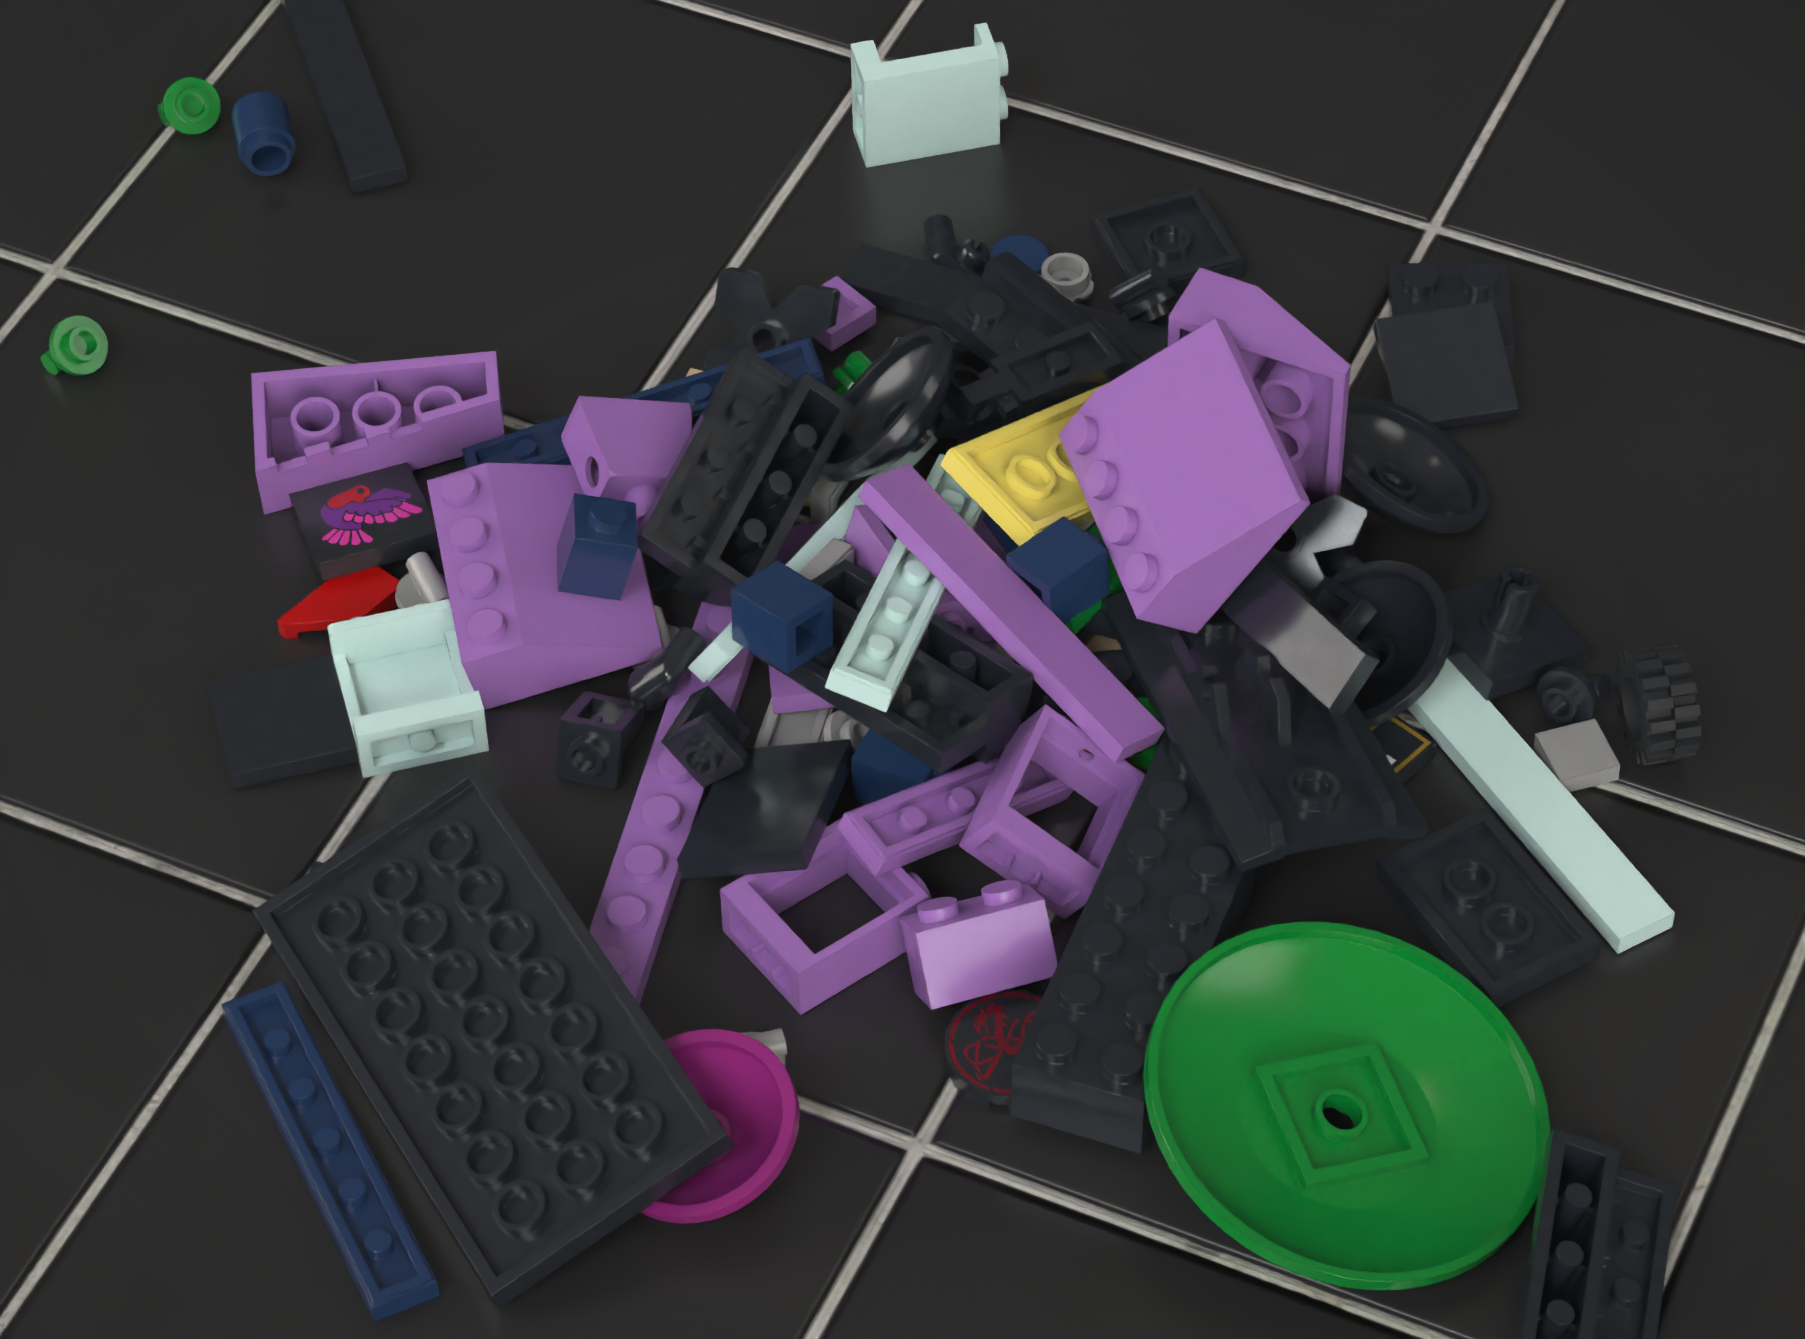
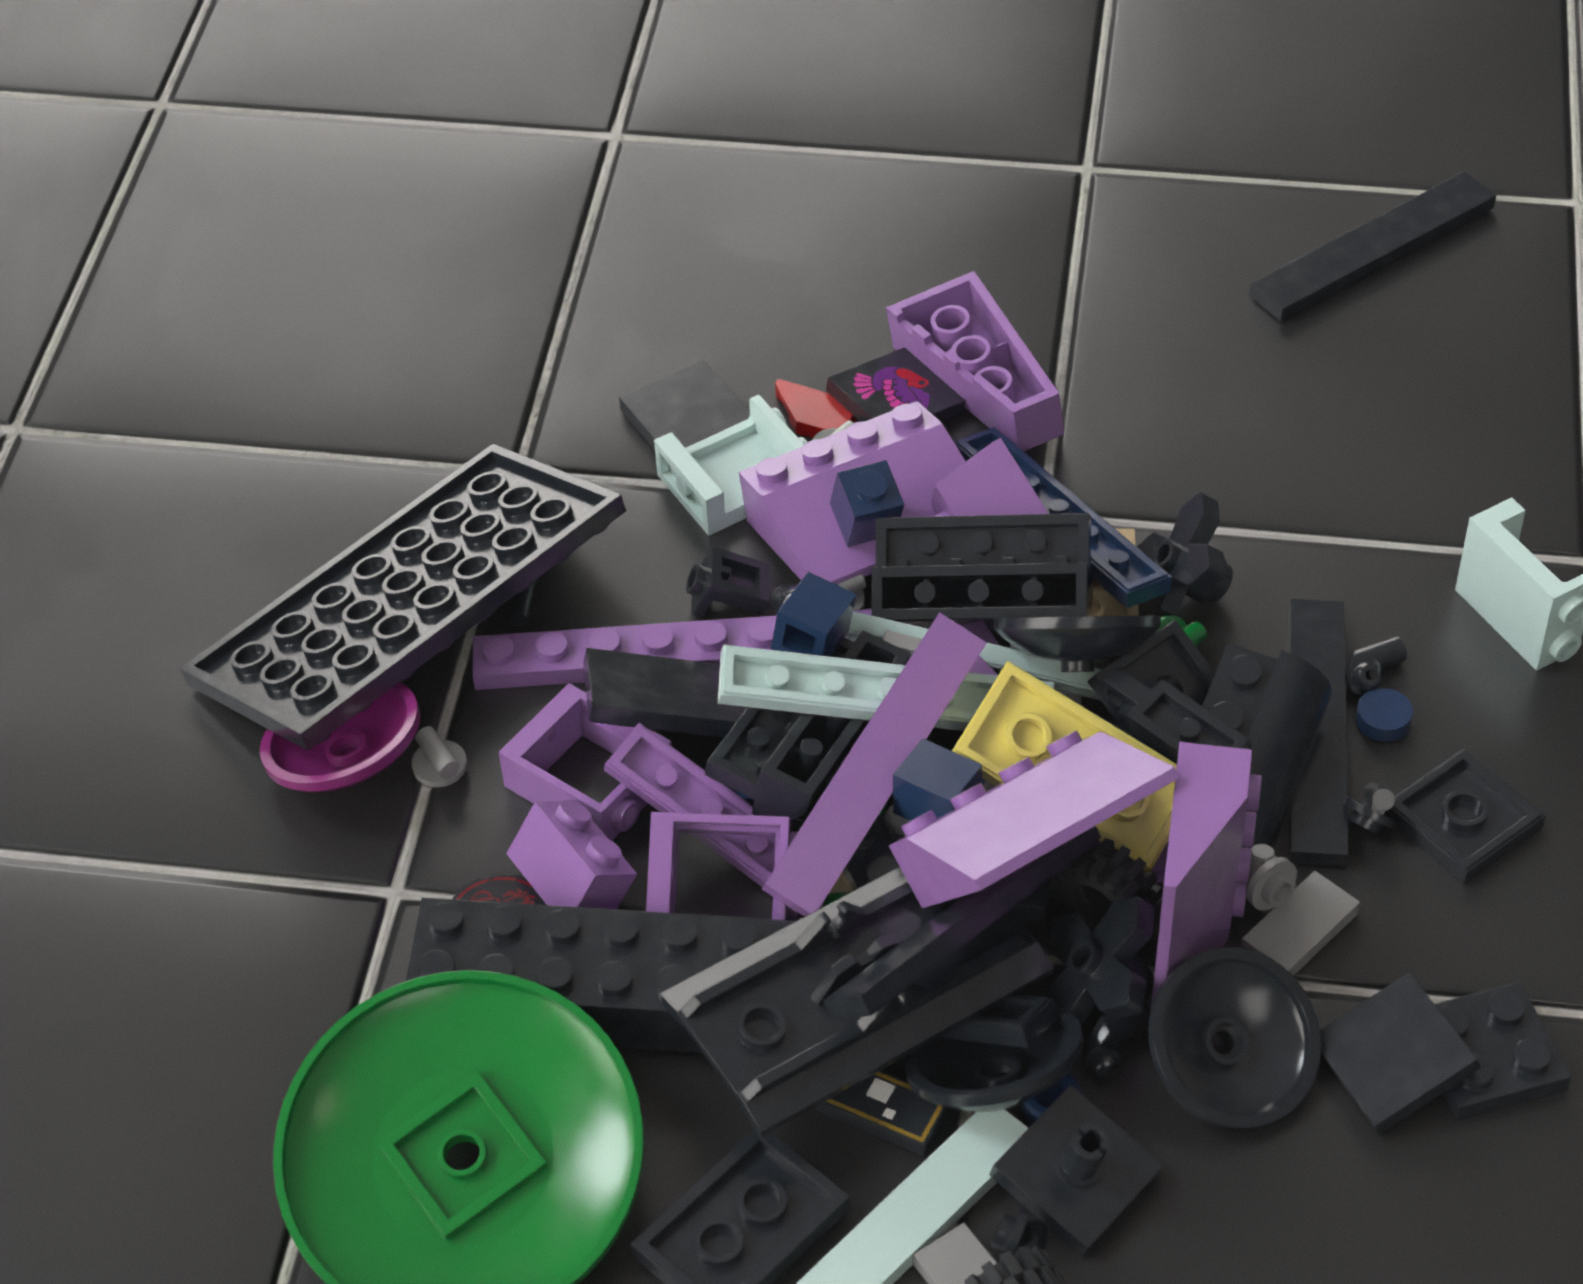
camera: 75 degrees right, 0 degrees up
(76, 347) = (1003, 196): green plate -> none
(190, 106) = (1283, 178): green plate -> none
(263, 133) = (1270, 221): dark blue brick -> none
(330, 1151) = (294, 556): dark blue tile -> none
(707, 738) = (724, 628): black bracket -> none
(853, 316) = (1250, 605): medium lavender plate -> none
(1069, 275) = (1374, 748): light grey plate -> none

